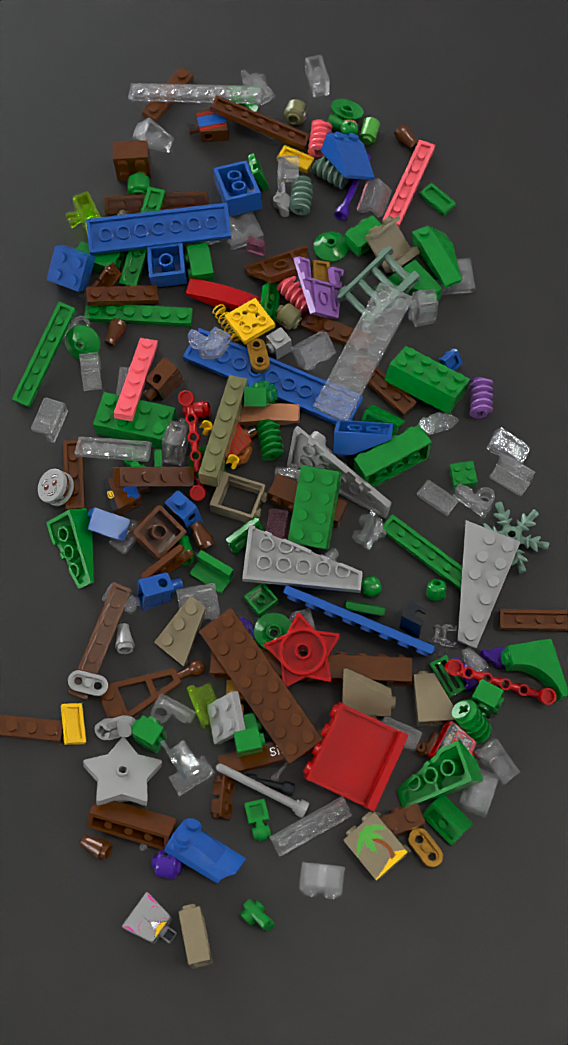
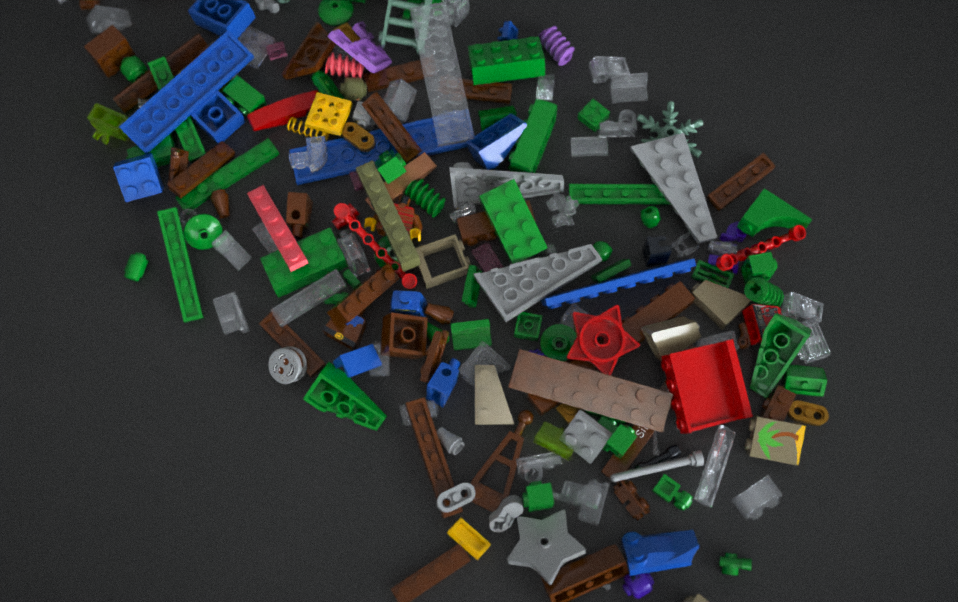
camera: 40 degrees left, 5 degrees up
(14, 333) = (135, 266): none -> green brick
(287, 365) = (391, 127): none -> reddish brown plate

